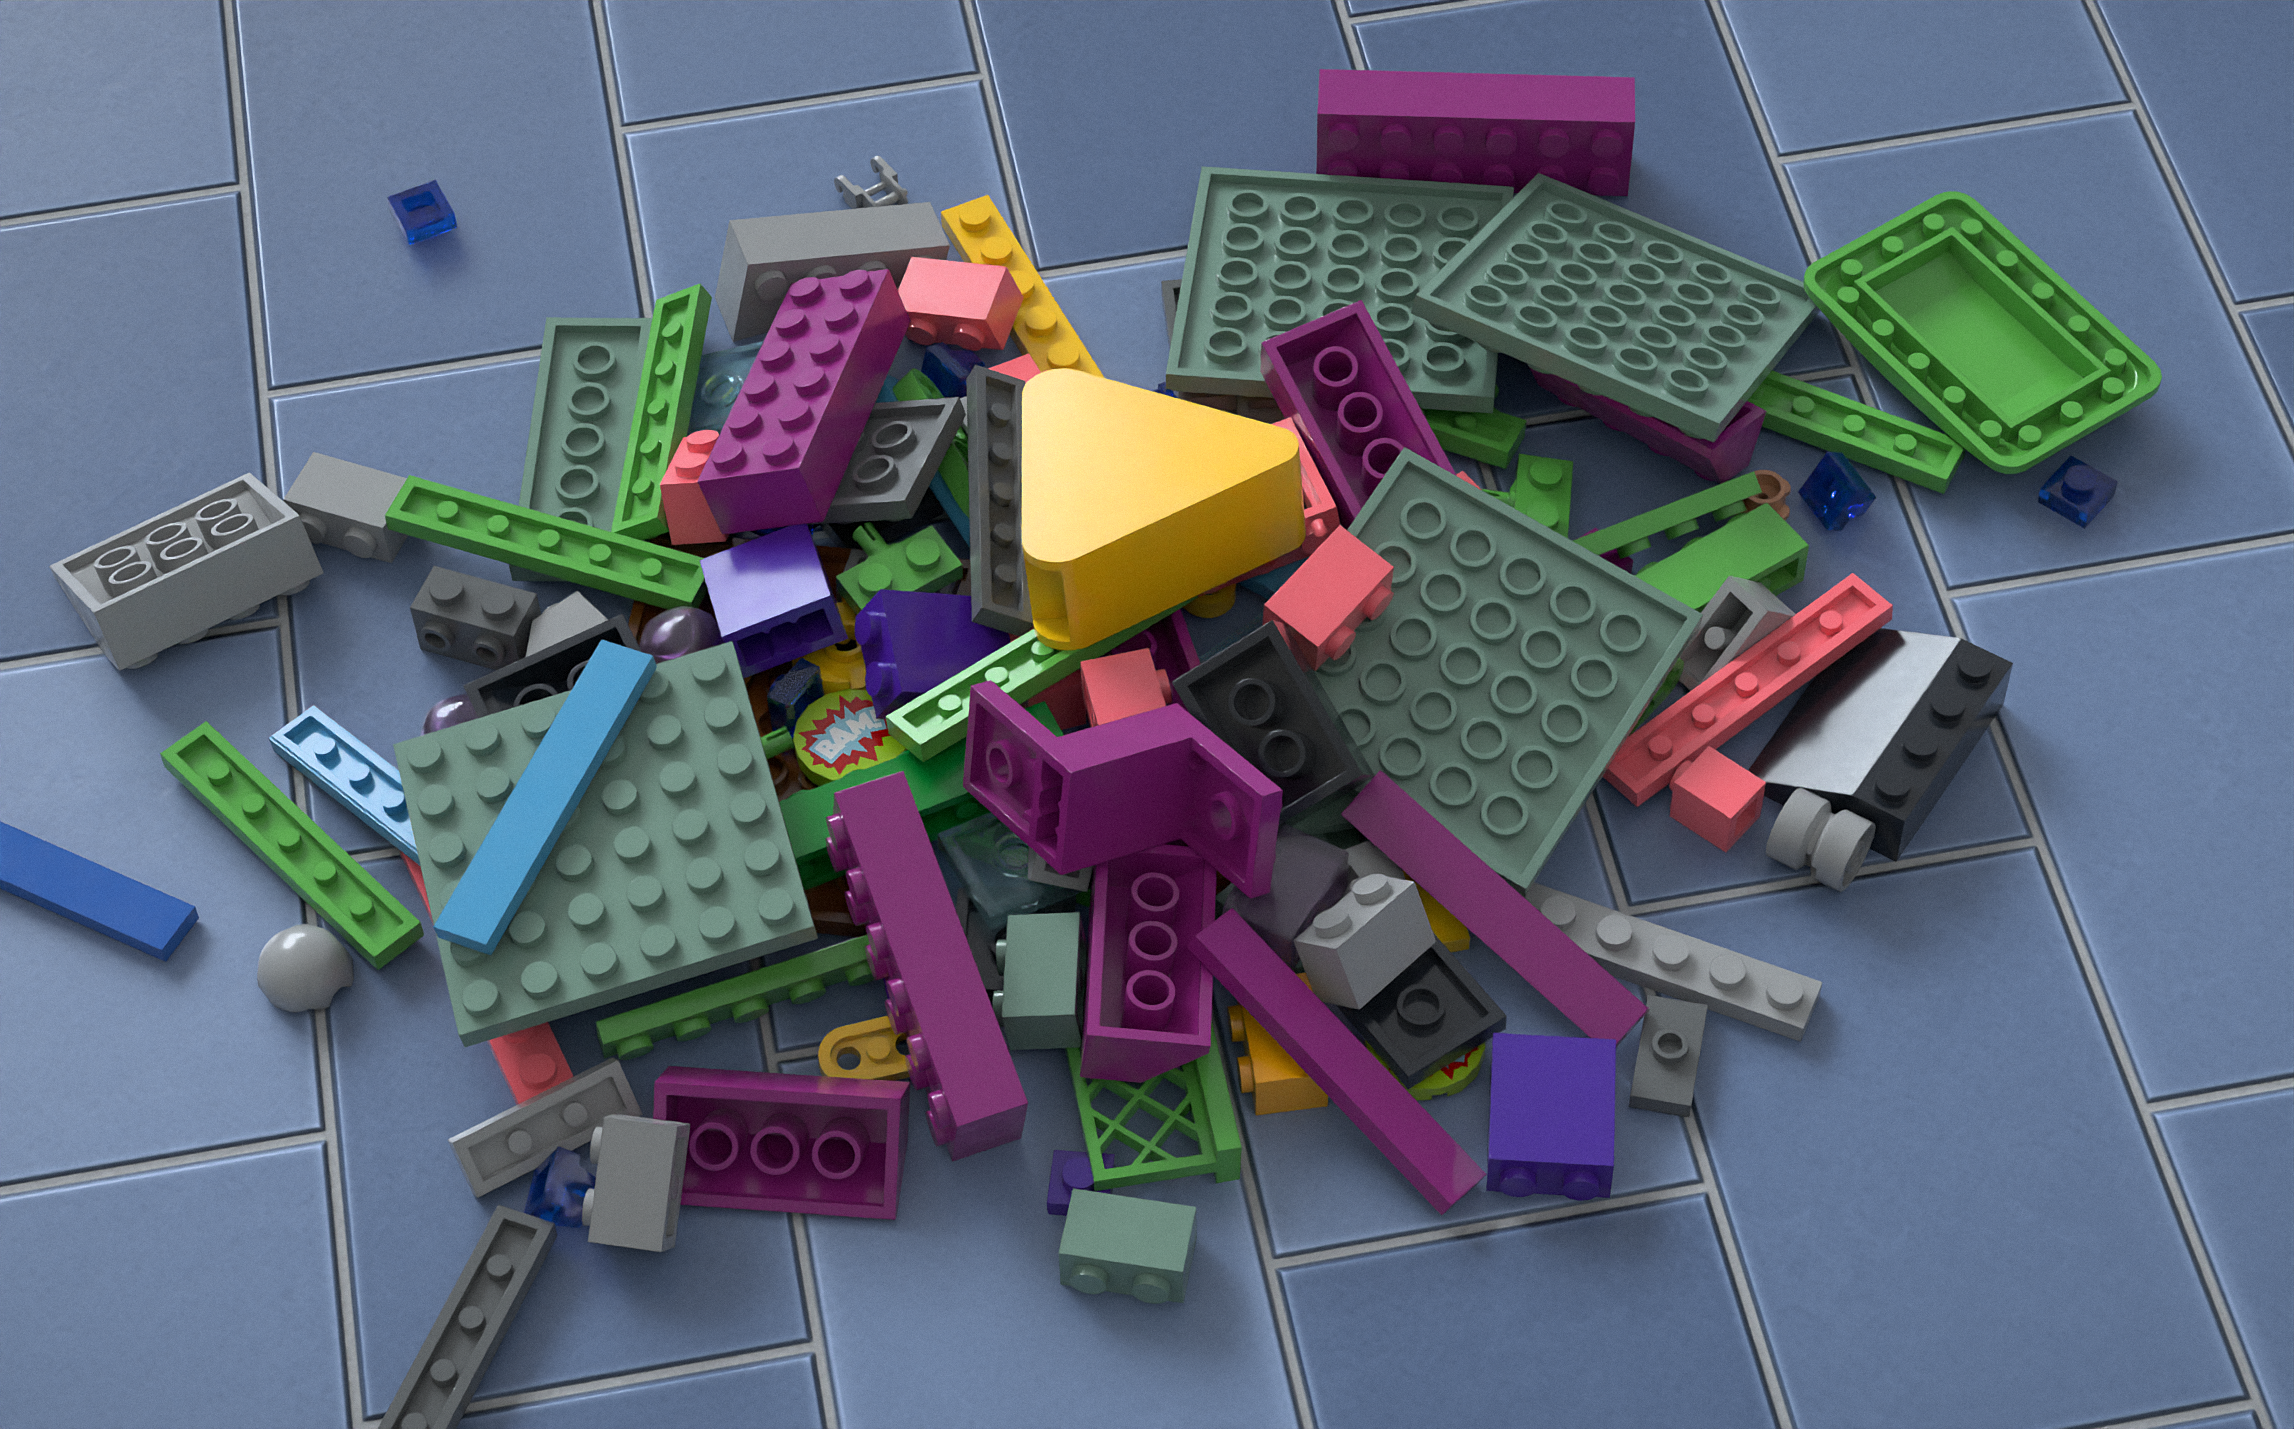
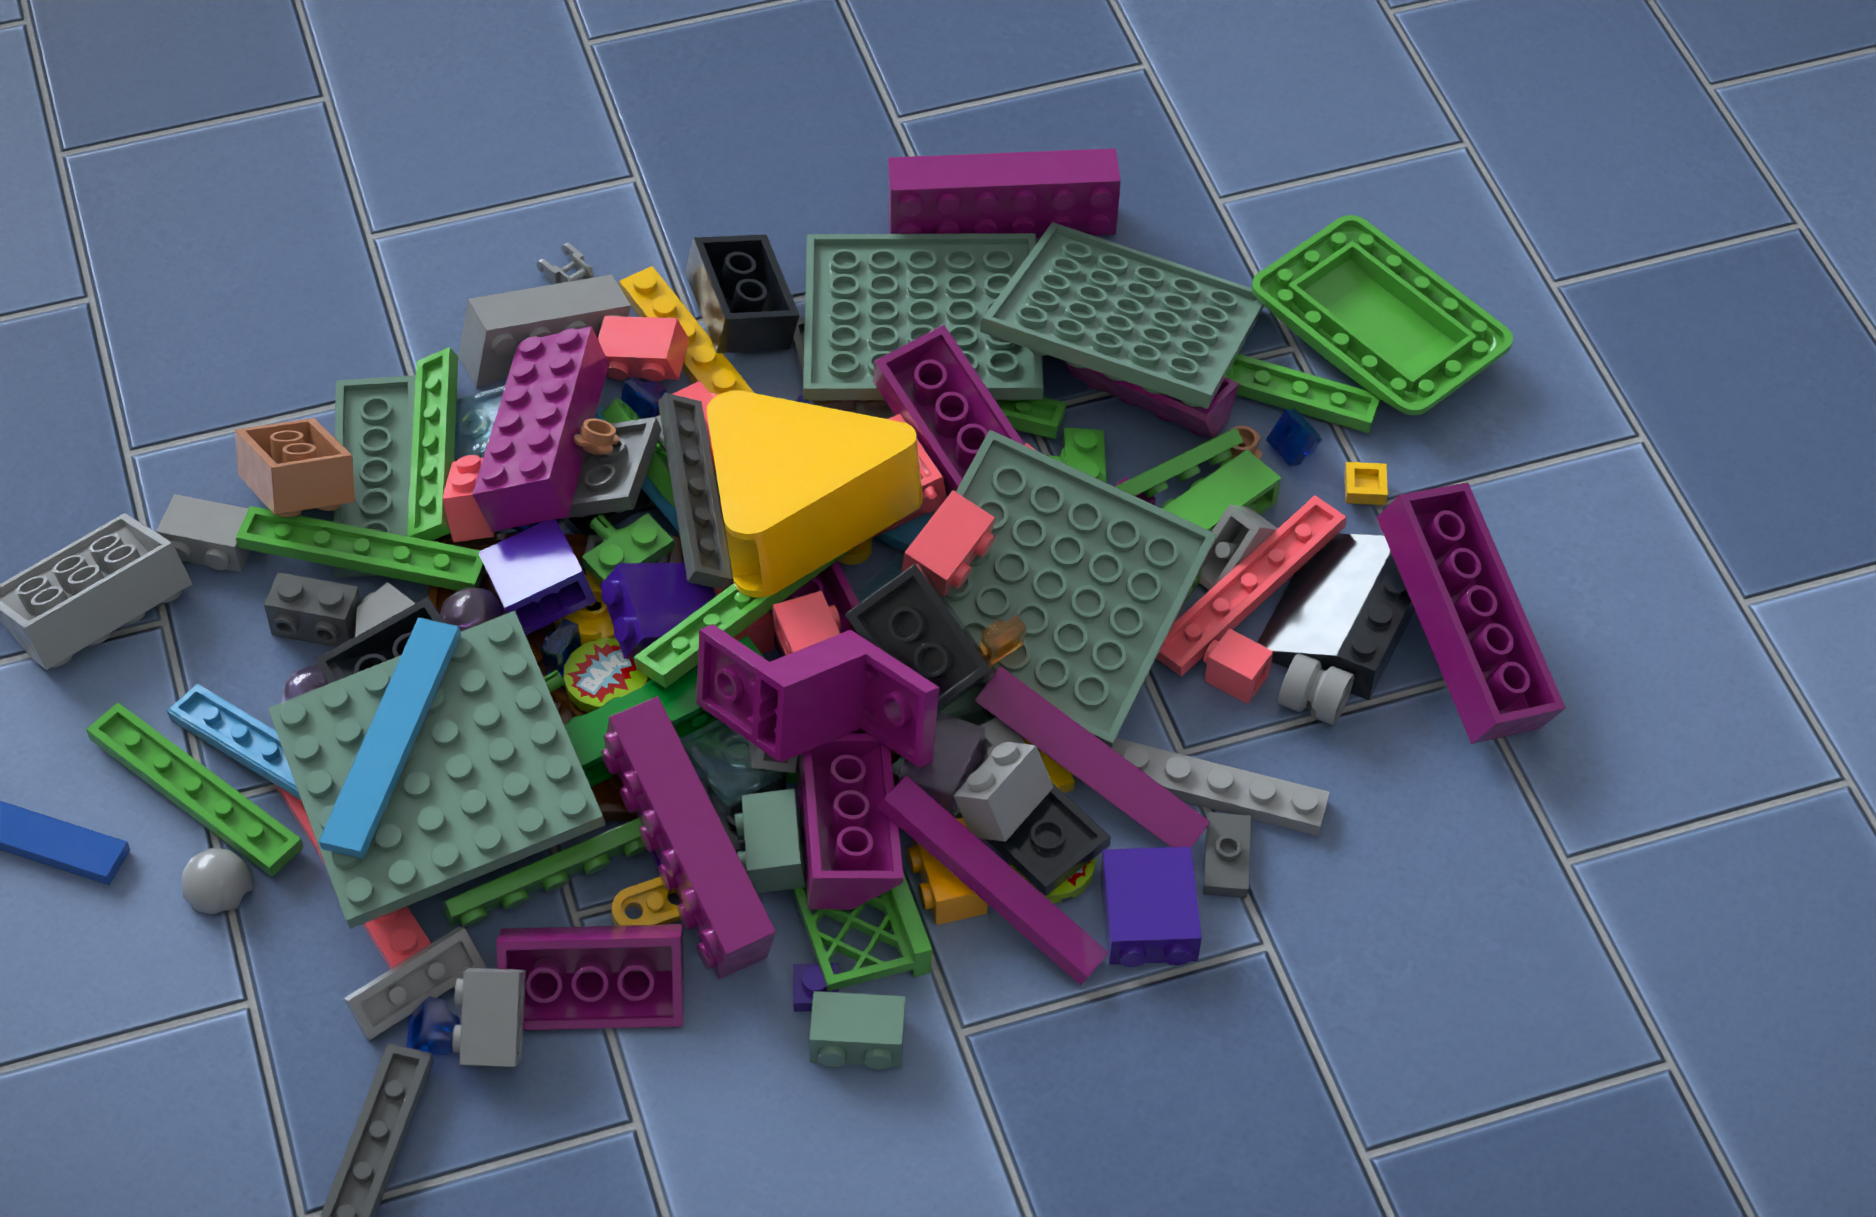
camera: 10 degrees left, 0 degrees up
(422, 212) = (230, 308): clear blue plate -> none
(474, 428) = (295, 466): none -> nougat brick
(875, 417) = (597, 437): none -> nougat plate
(1101, 240) = (741, 293): none -> black brick
(1387, 733) = (1002, 638): none -> clear orange plate
(1929, 562) = (1366, 483): none -> yellow plate
(2047, 752) = (1470, 612): none -> magenta brick
(2077, 491) = (1462, 424): clear blue plate -> none

